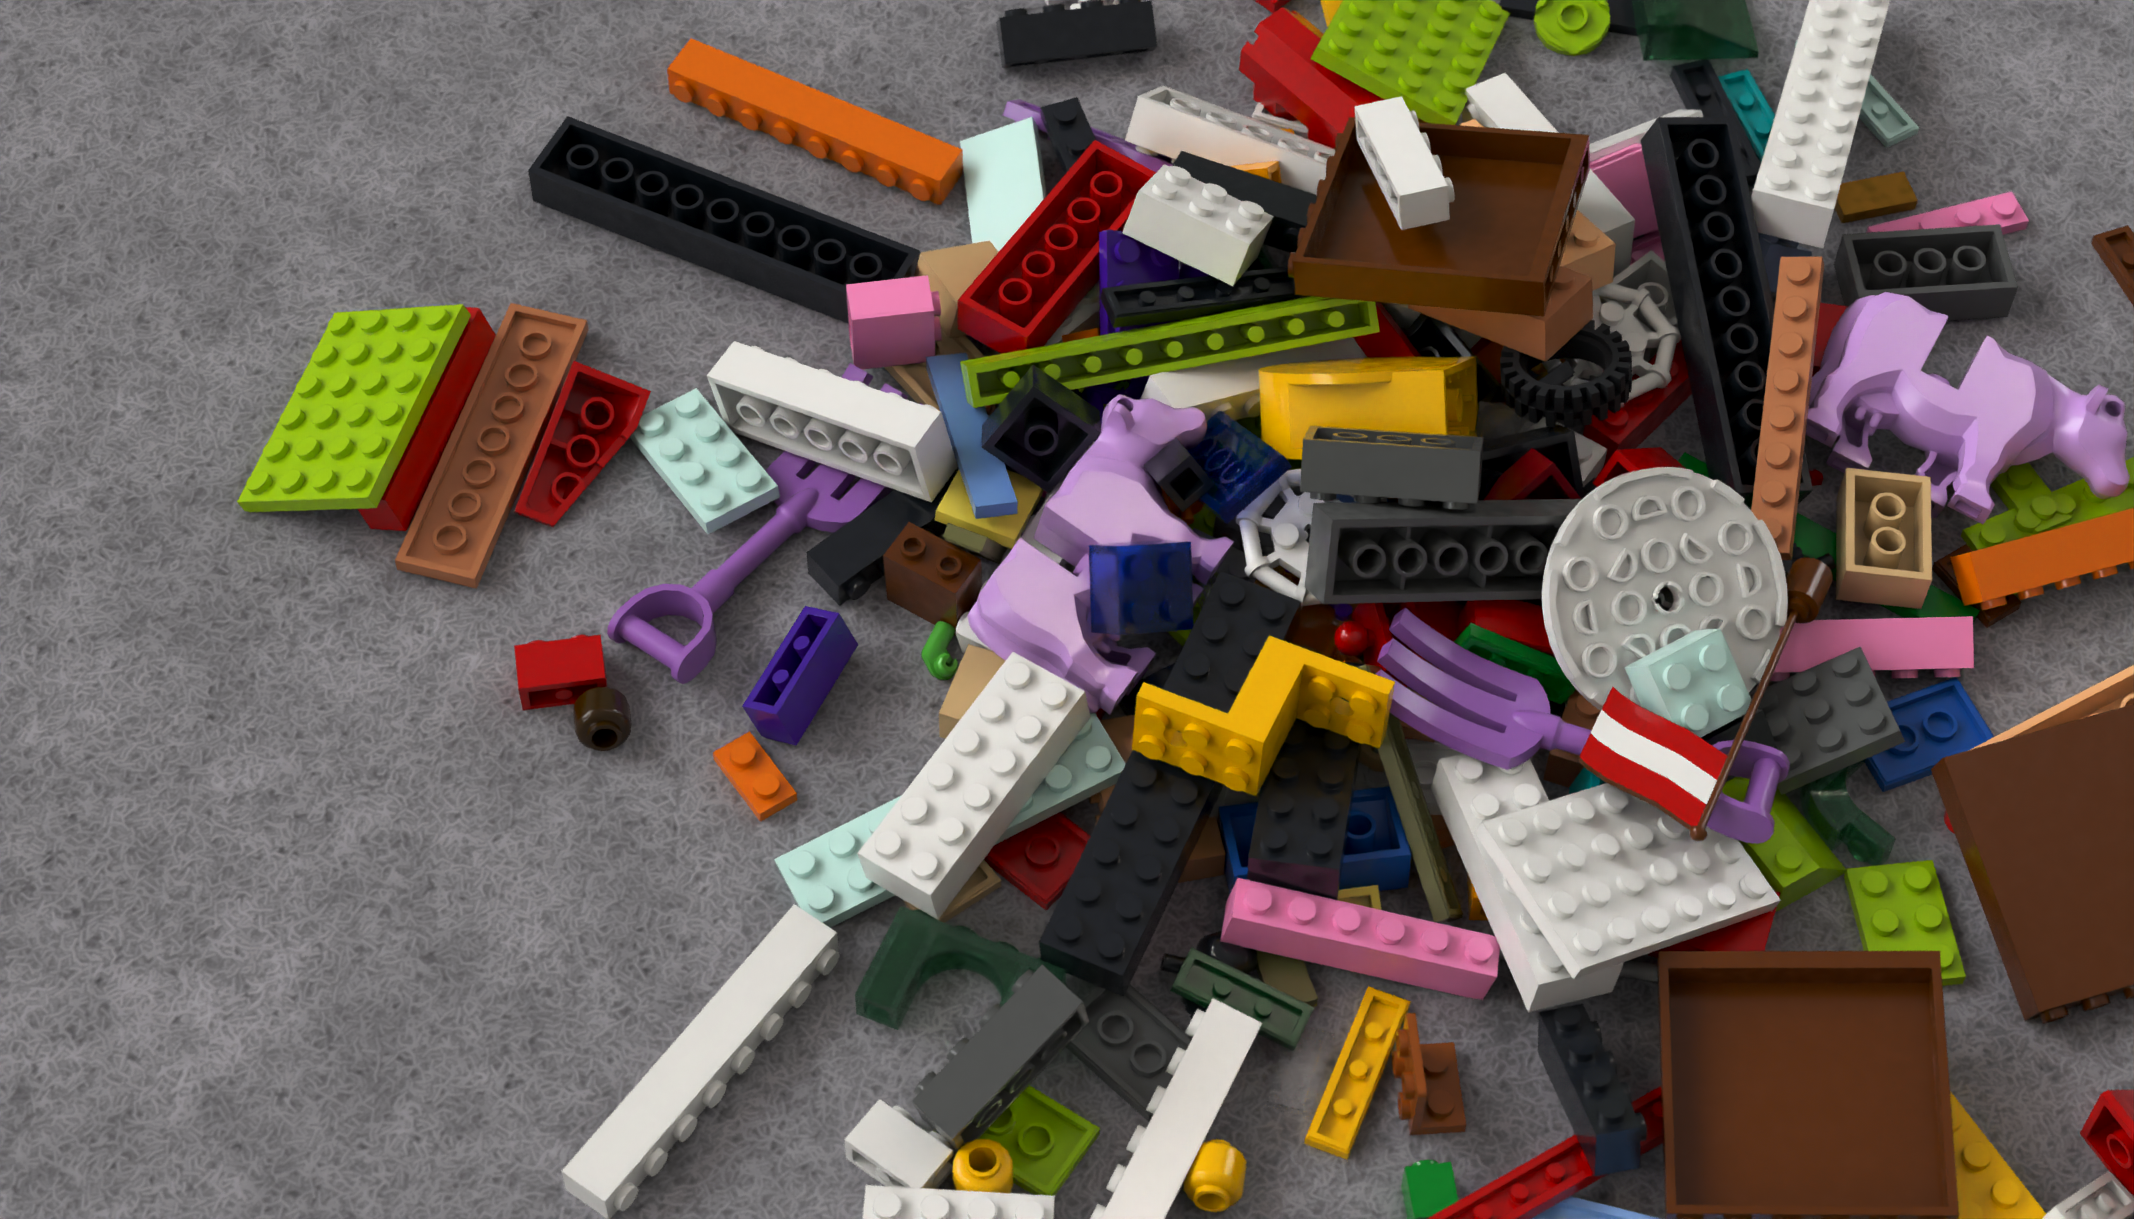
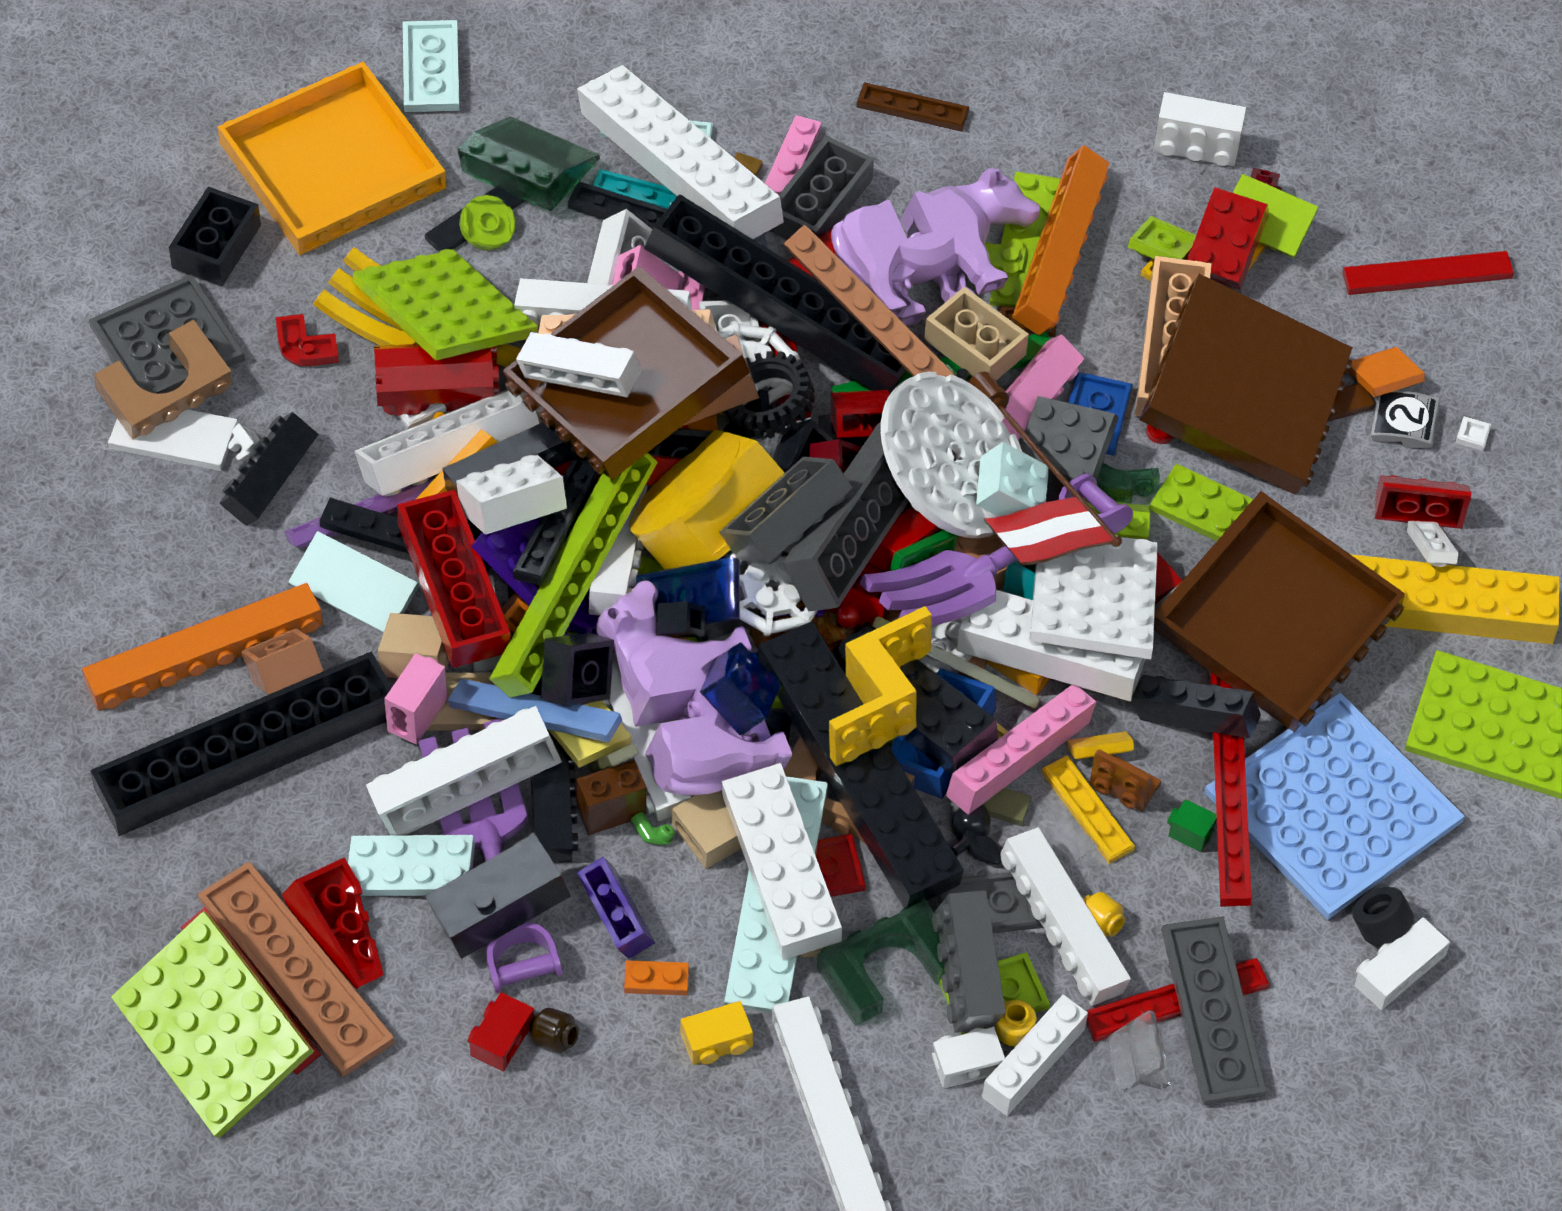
camera: 55 degrees left, 0 degrees up
(709, 551) = (498, 896): none -> brick
(723, 876) = (716, 1033): none -> yellow brick
(843, 188) = (282, 661): none -> nougat brick
(1207, 978) = (992, 834): dark green tile -> none
(1454, 1027) = (1109, 743): none -> yellow tile

